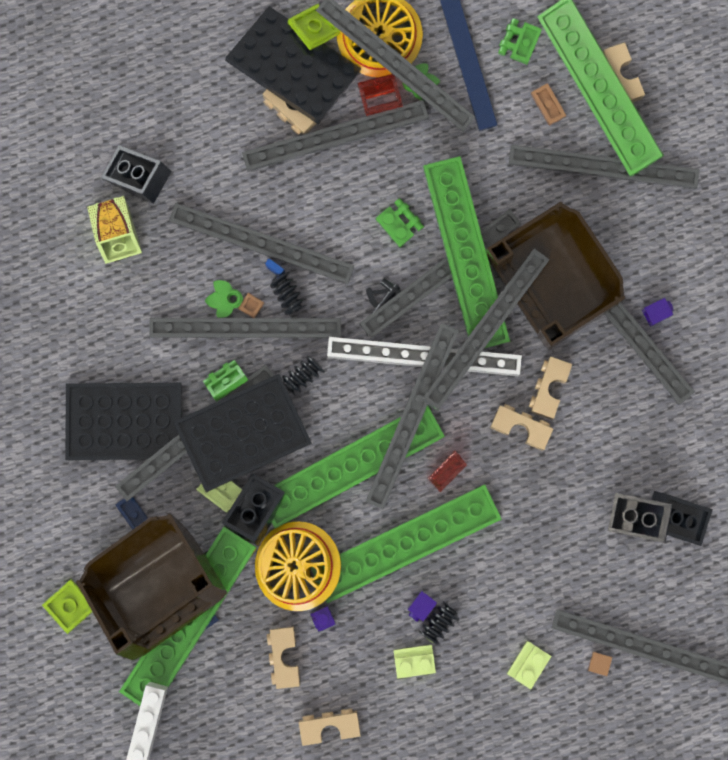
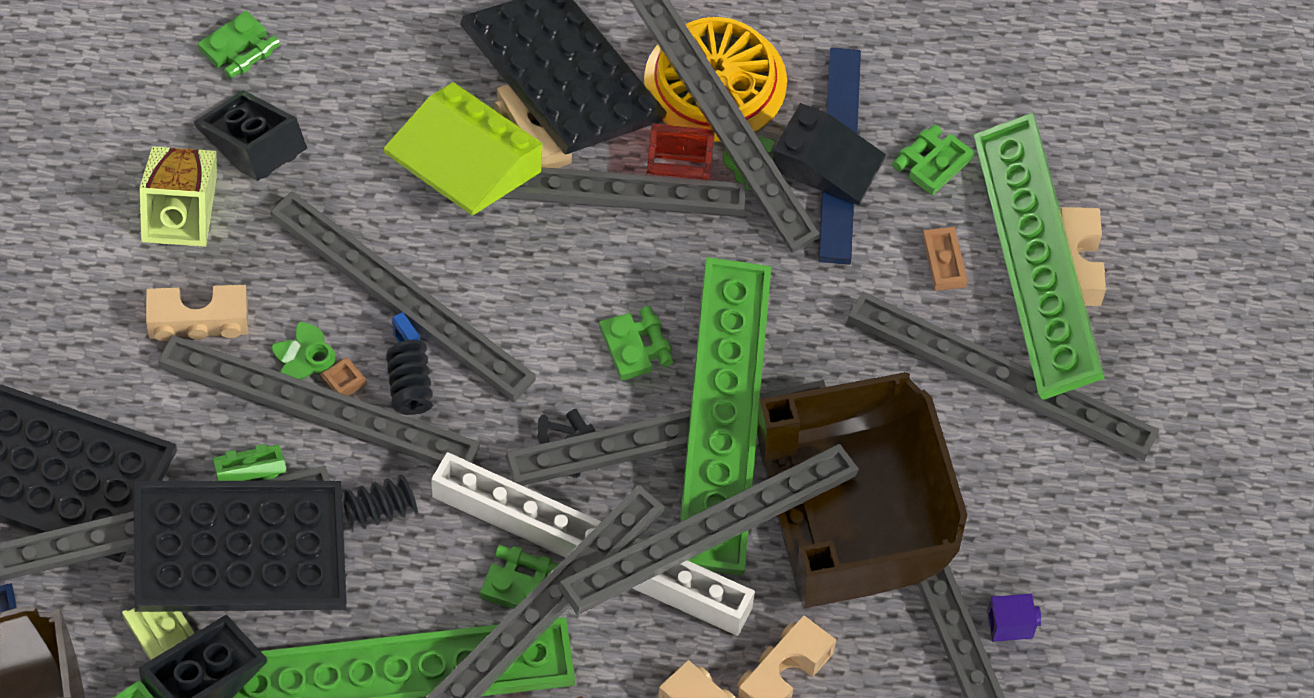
camera: 15 degrees right, 25 degrees down
(98, 115) = (234, 38): none -> bright green plate
(172, 295) = (223, 316): none -> tan arch
(261, 142) = (465, 149): none -> lime slope
(312, 27) = (617, 31): lime tile -> none
(393, 394) = (511, 587): none -> bright green plate
(463, 65) = (827, 155): none -> black slope

